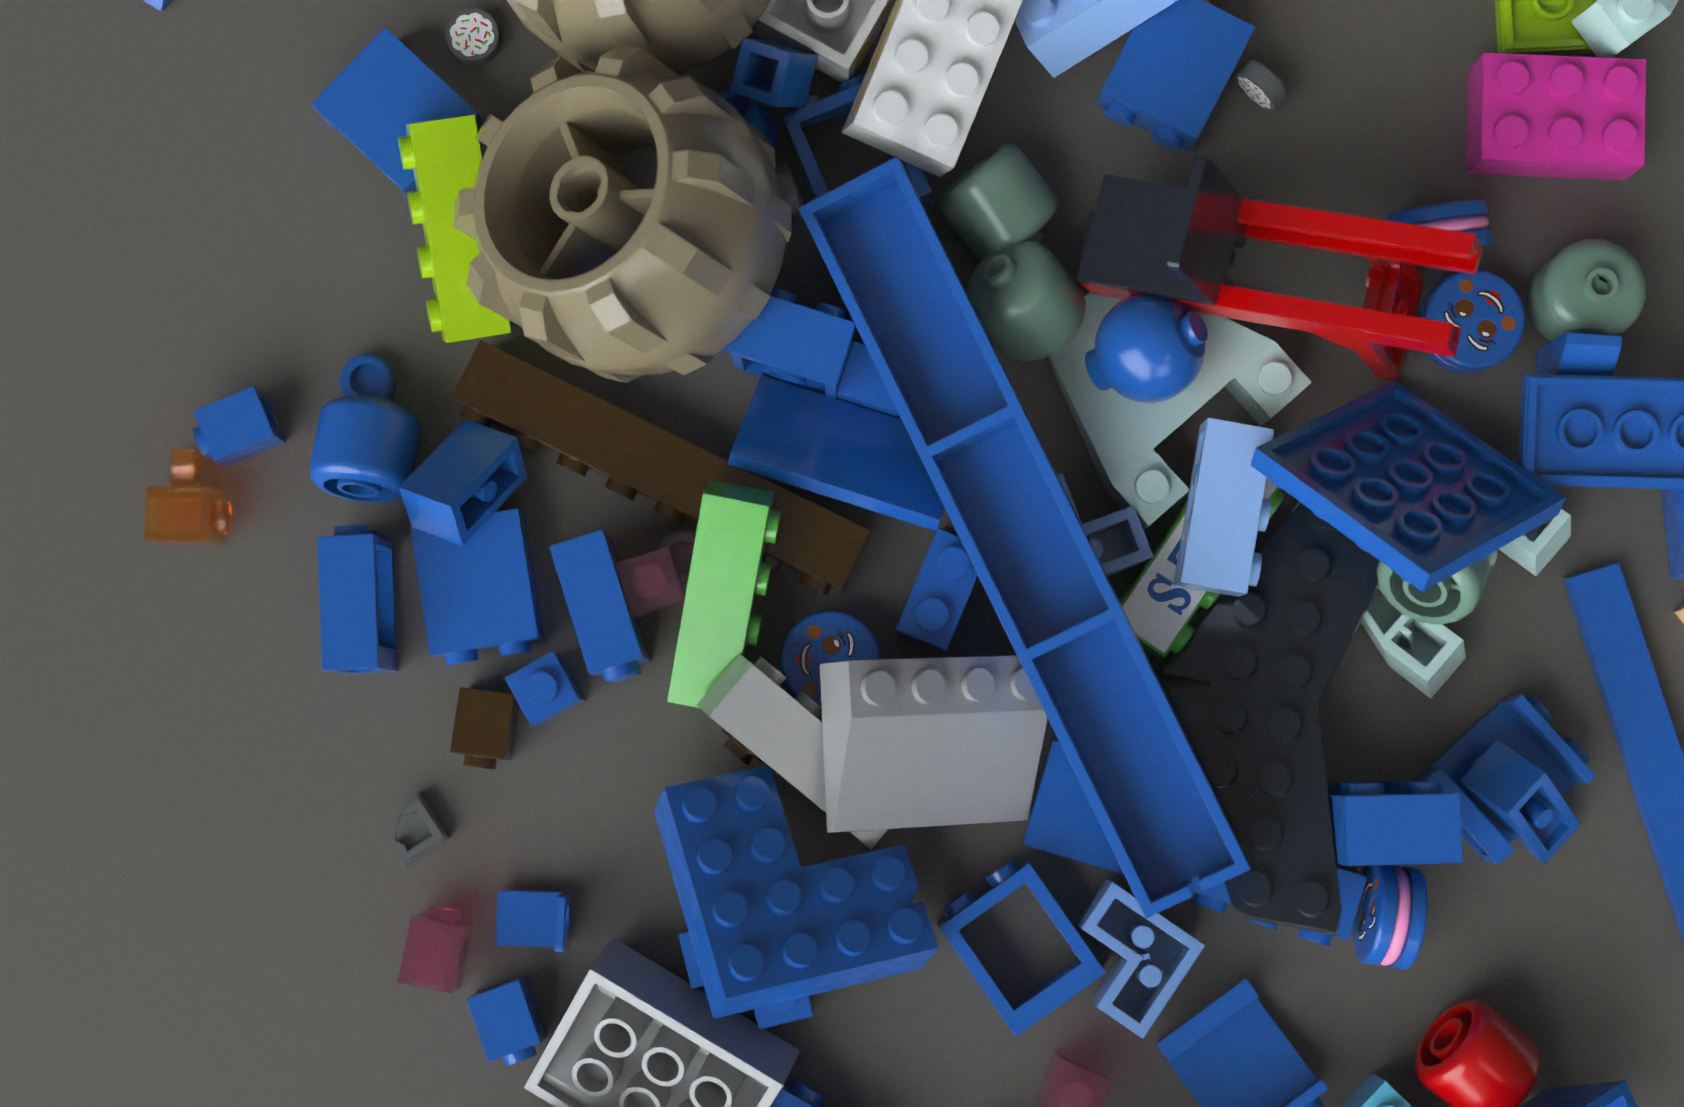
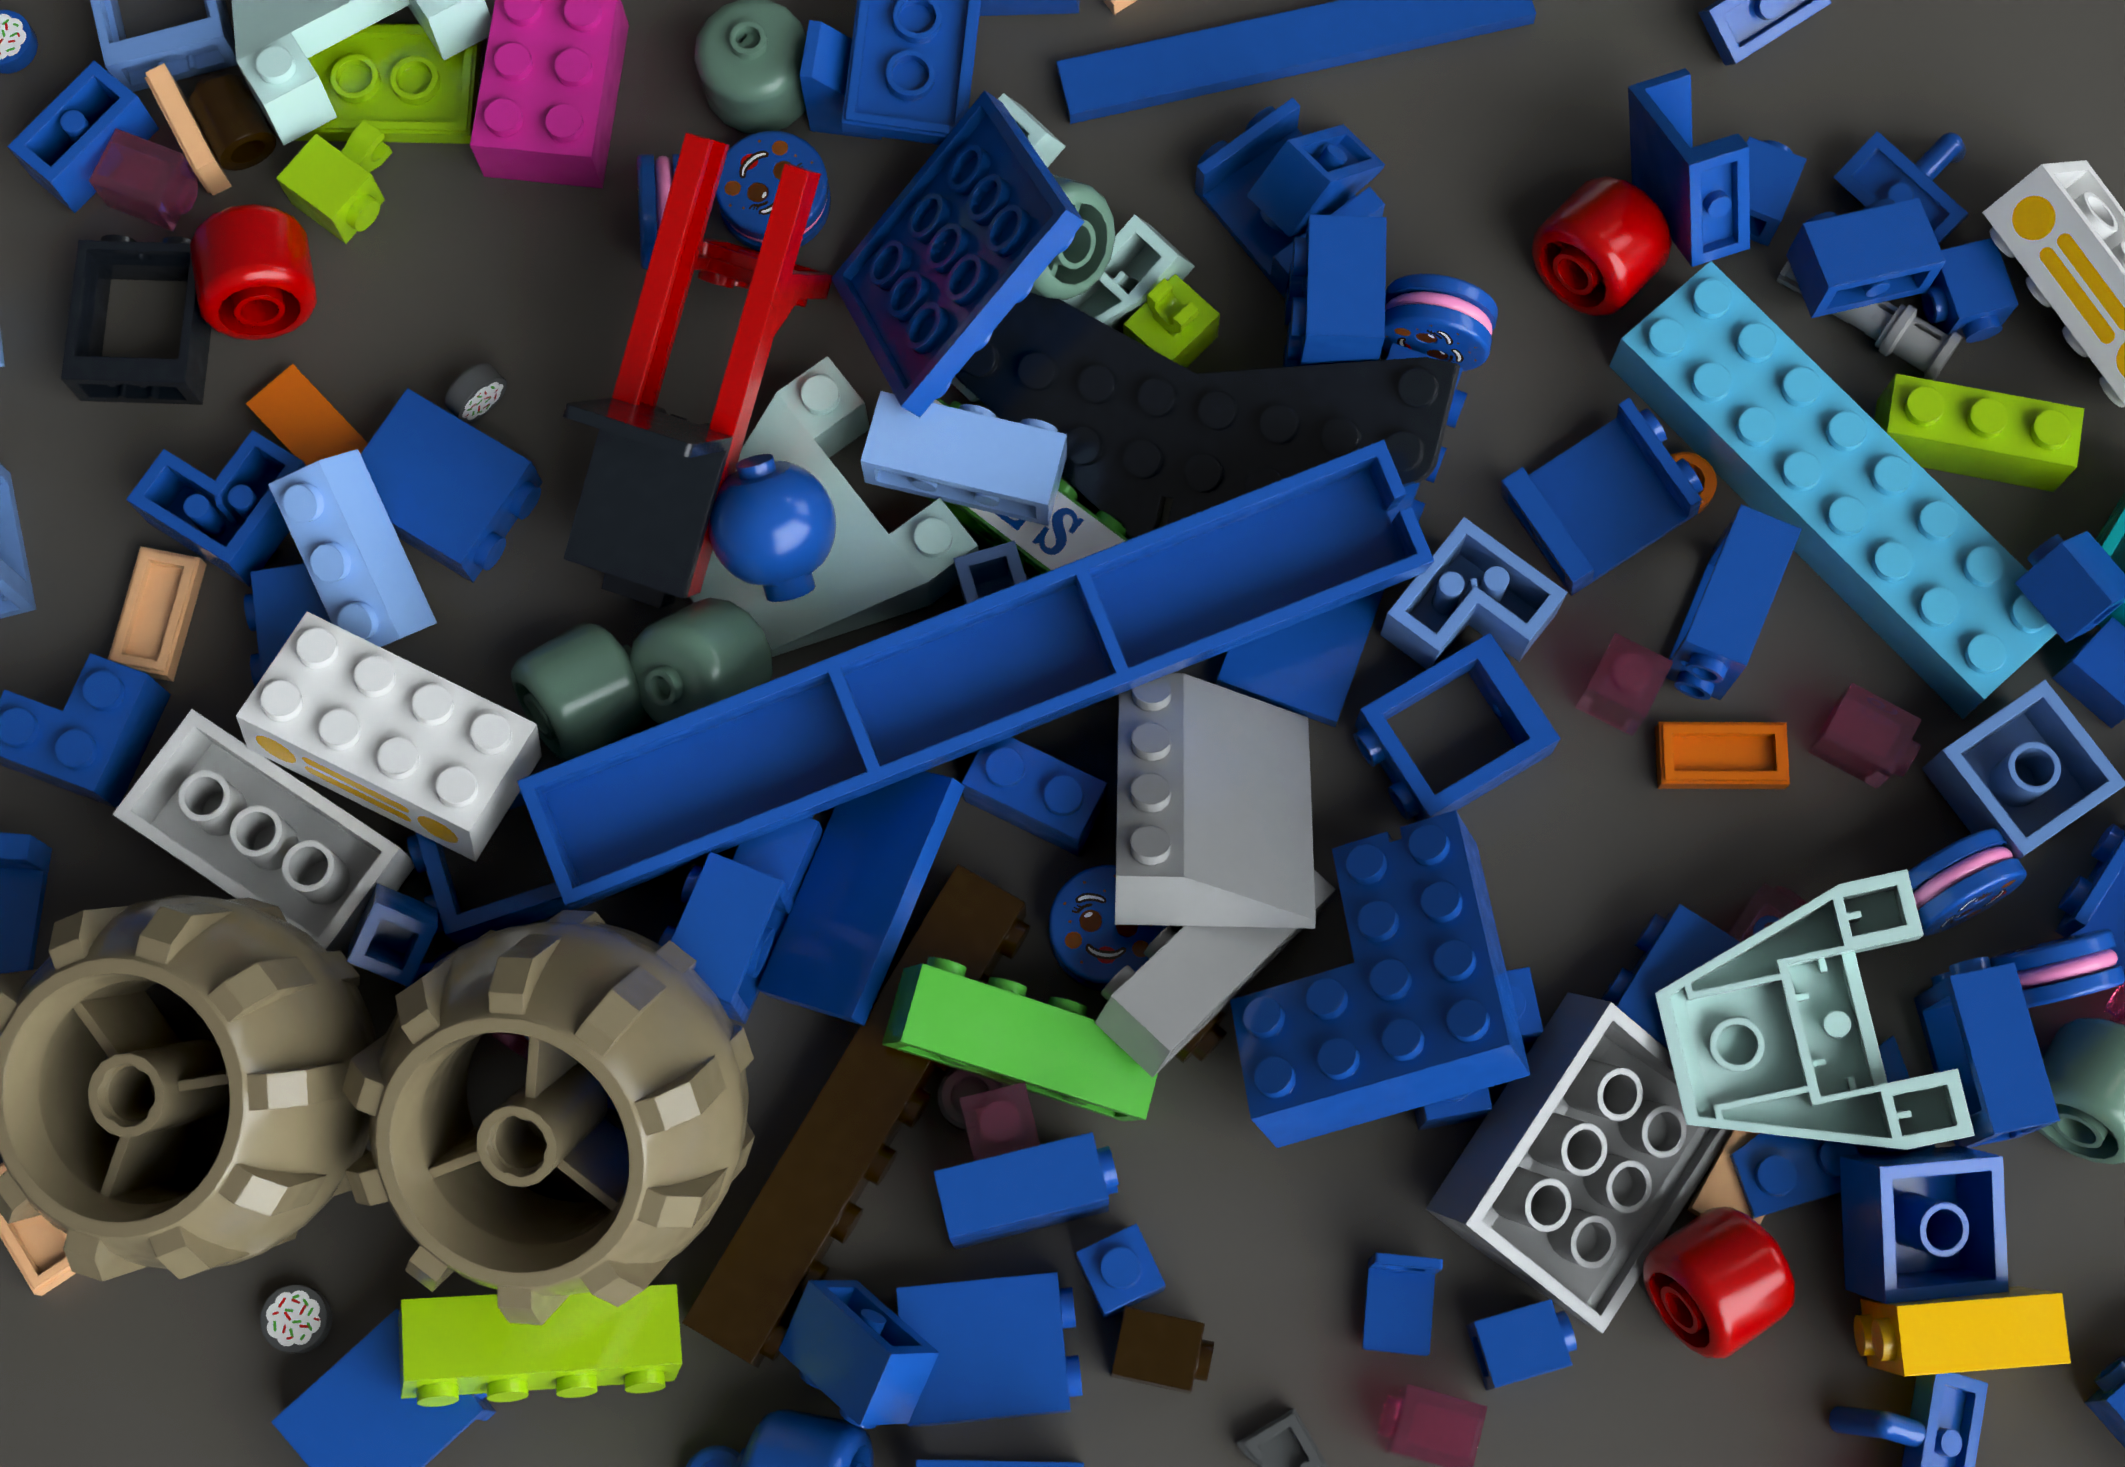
camera: 85 degrees left, 10 degrees down
(1370, 681) = (1174, 322): none -> lime brick

